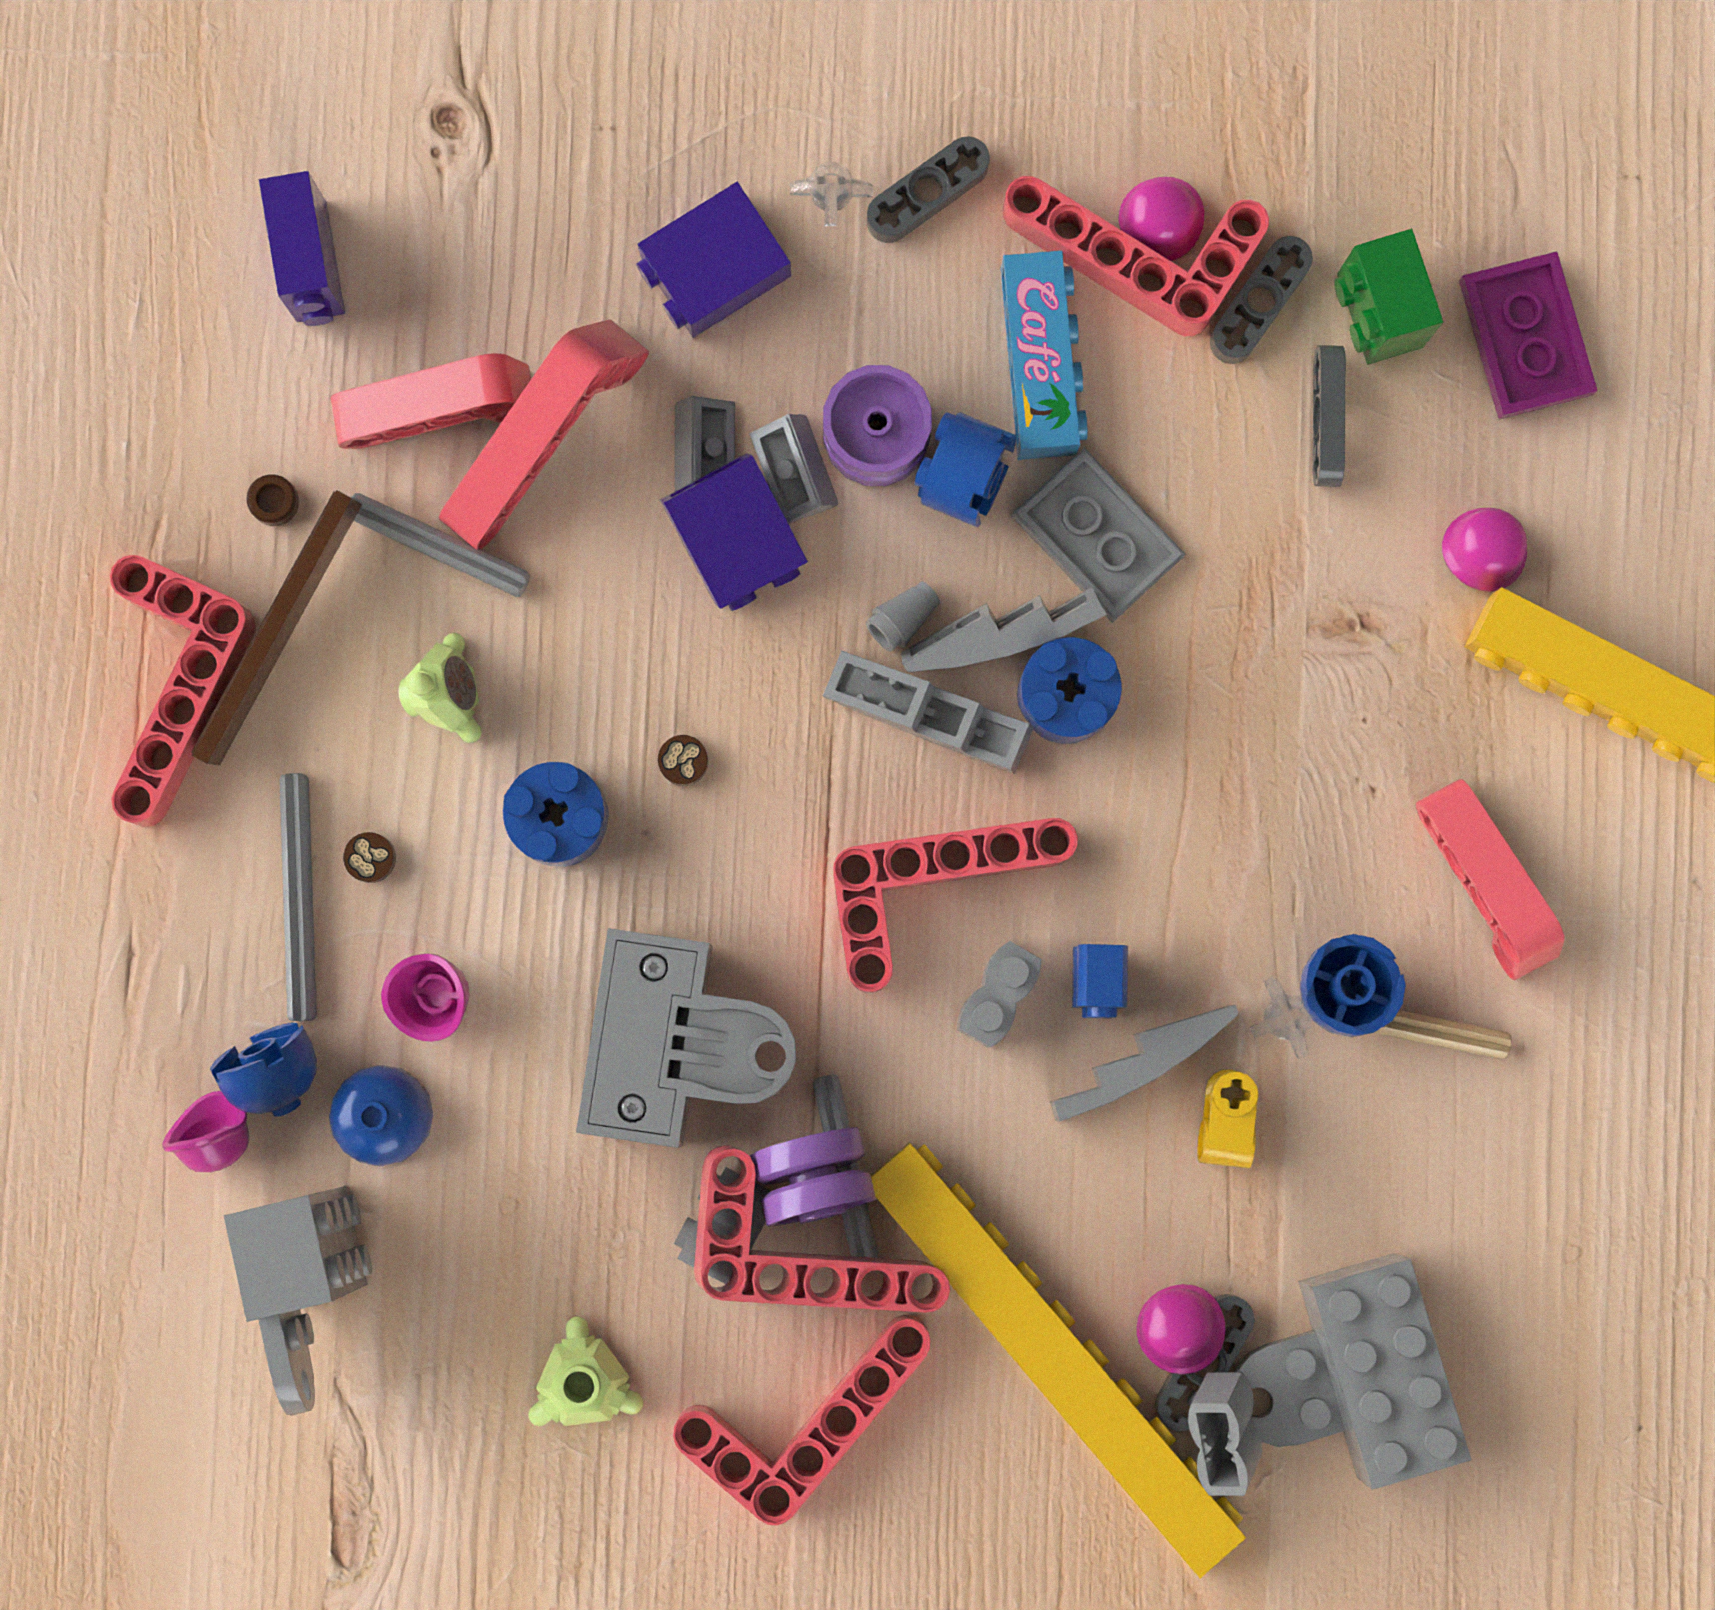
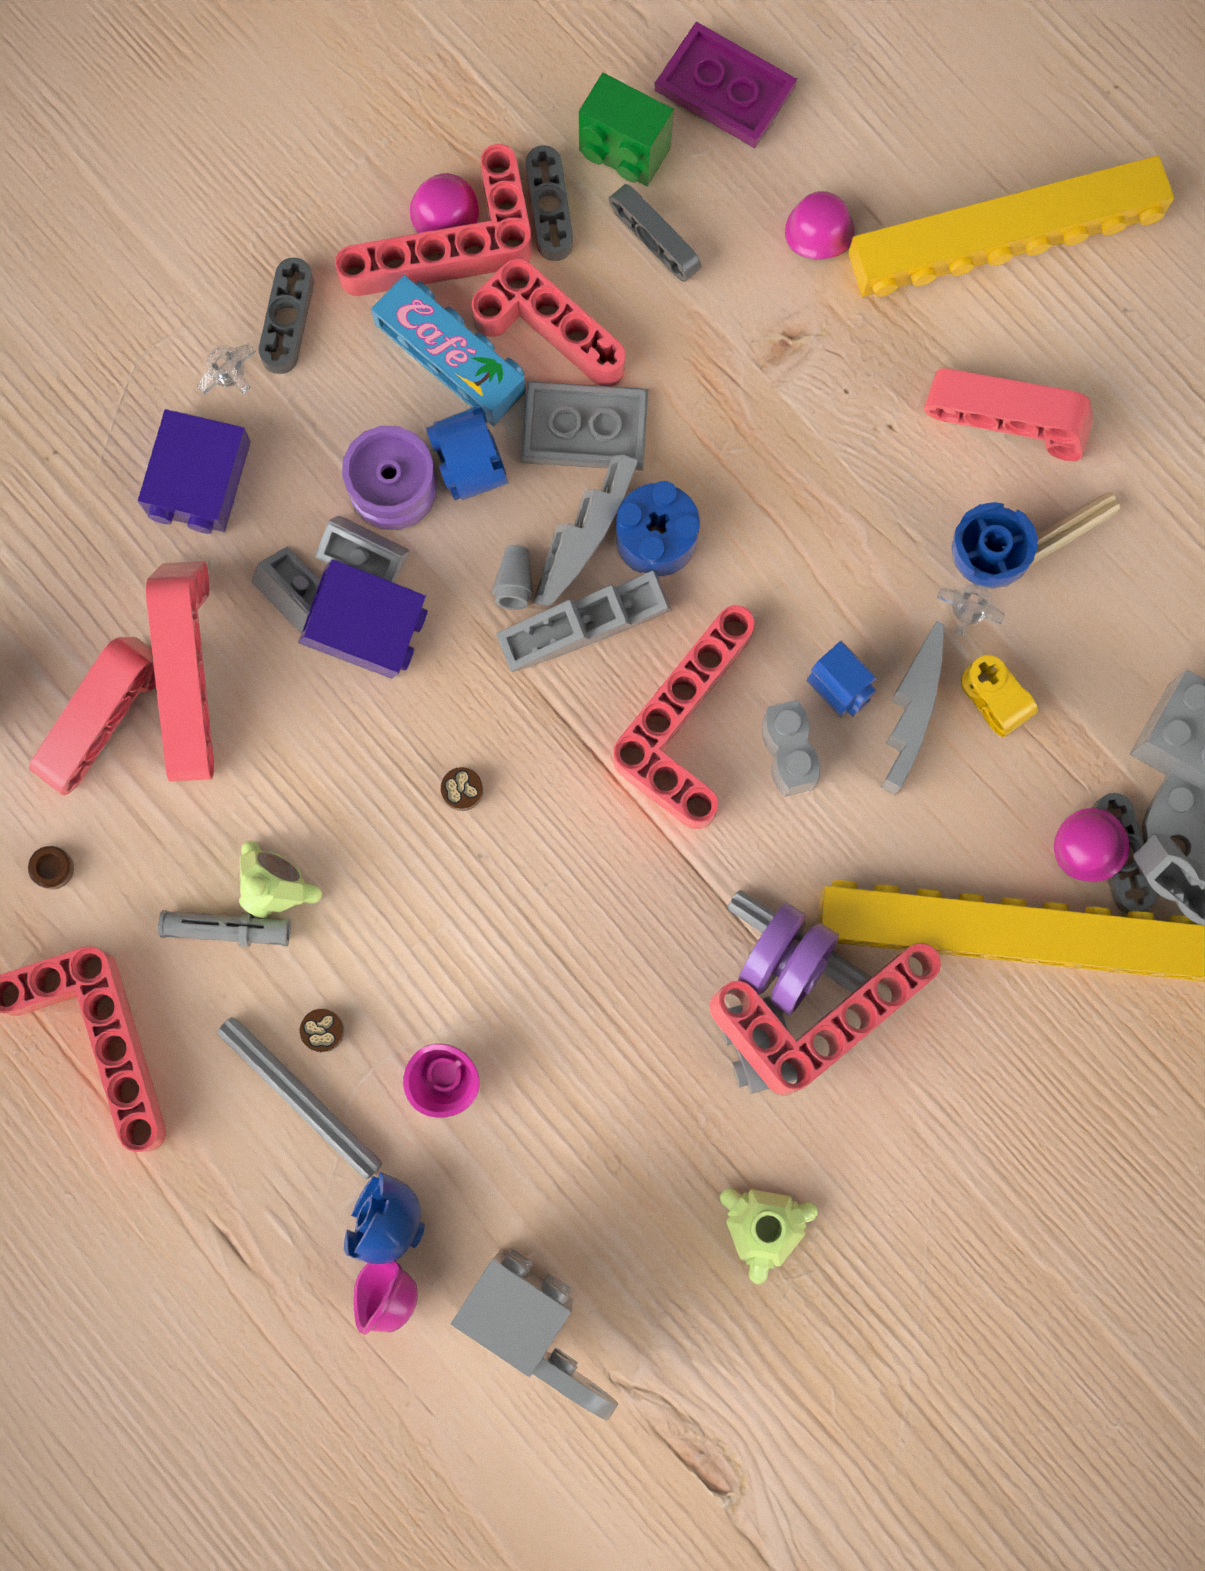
camera: 40 degrees left, 5 degrees down
(276, 628) = (128, 940): reddish brown tile -> none
(381, 1115) = (481, 1184): blue cylinder -> none
(383, 708) = (240, 929): none -> light grey pin
(441, 546) = (182, 799): light grey axle -> none
(528, 806) = (404, 870): blue brick -> none
(669, 1041) = (618, 960): light grey brick -> none
(815, 1431) = (934, 1120): coral beam -> none
(1154, 421) = (554, 327): none -> coral beam

